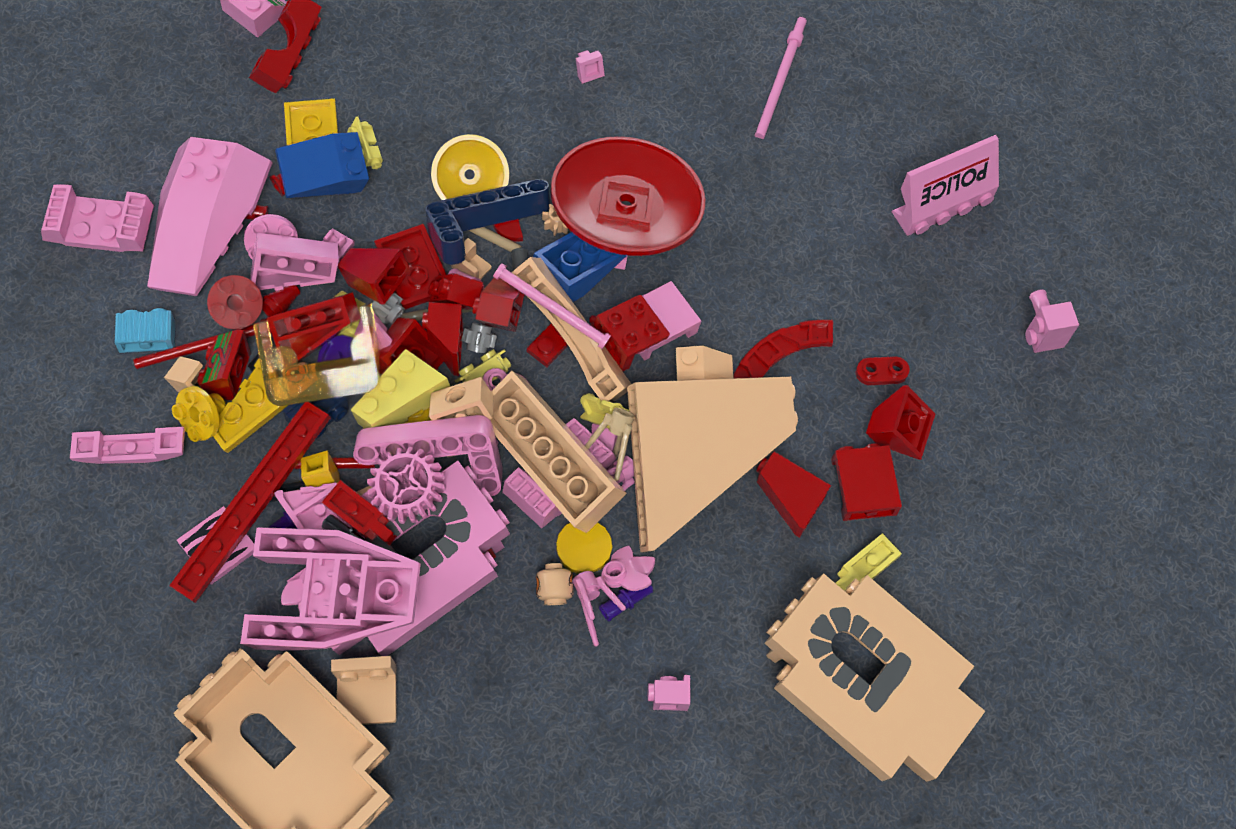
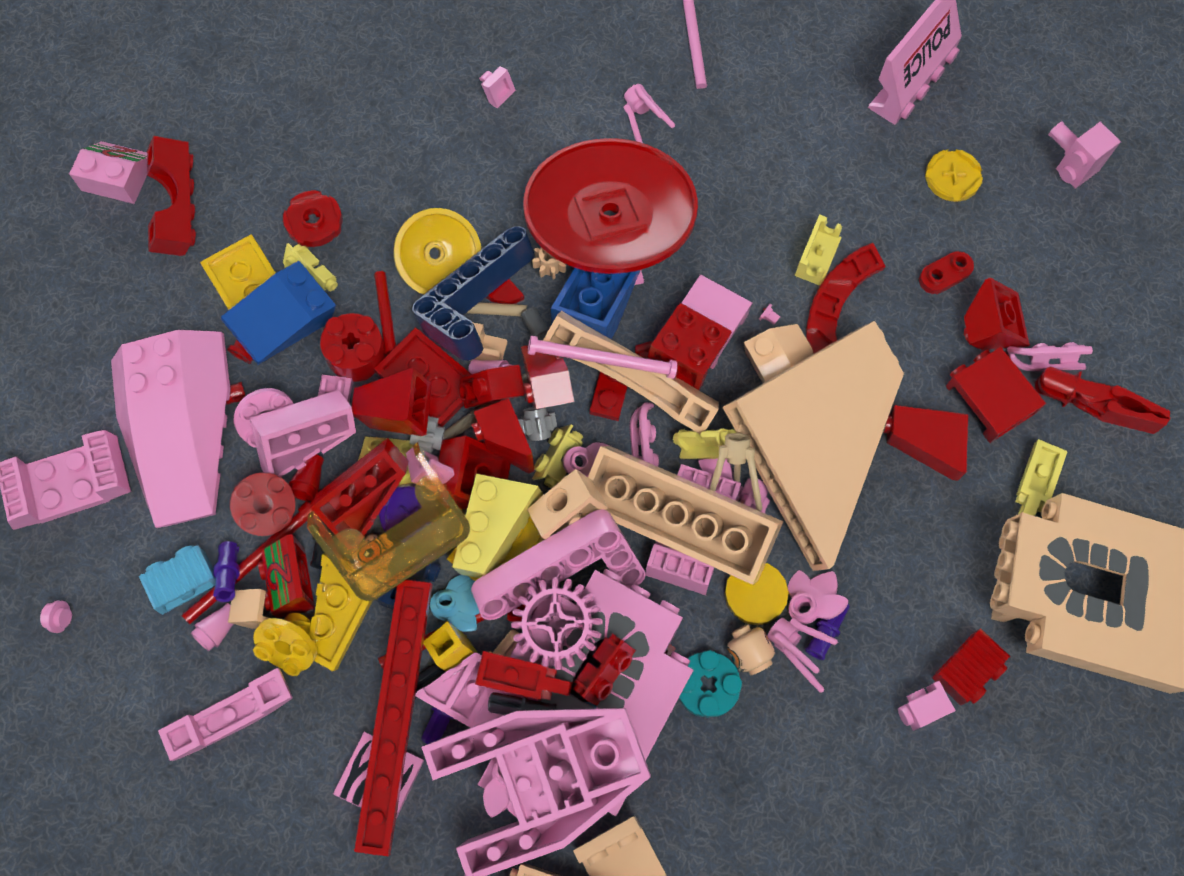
camera: 20 degrees left, 5 degrees up
(41, 316) = (56, 616): none -> bright pink plate
(150, 379) = (213, 628): none -> bright pink cone
(182, 340) = (226, 571): none -> dark purple pin
(341, 451) = (463, 606): none -> medium azure plate
(366, 216) = (347, 332): none -> red brick
(388, 119) = (317, 233): none -> red plate
(407, 201) = (385, 311): none -> red bar
(435, 532) = (596, 683): none -> red hinge
(522, 604) = (727, 685): none -> teal plate
(559, 385) = (643, 435): none -> bright pink piece
(700, 128) = (640, 101): none -> bright pink plant
(714, 339) = (769, 315): none -> bright pink piece
(725, 681) = (972, 667): none -> red brick
(782, 306) = (819, 252): none -> light yellow hinge
(926, 469) = (1042, 353): none -> bright pink piece
(933, 296) = (954, 175): none -> yellow tile
(955, 528) = (1105, 402): none -> red arm

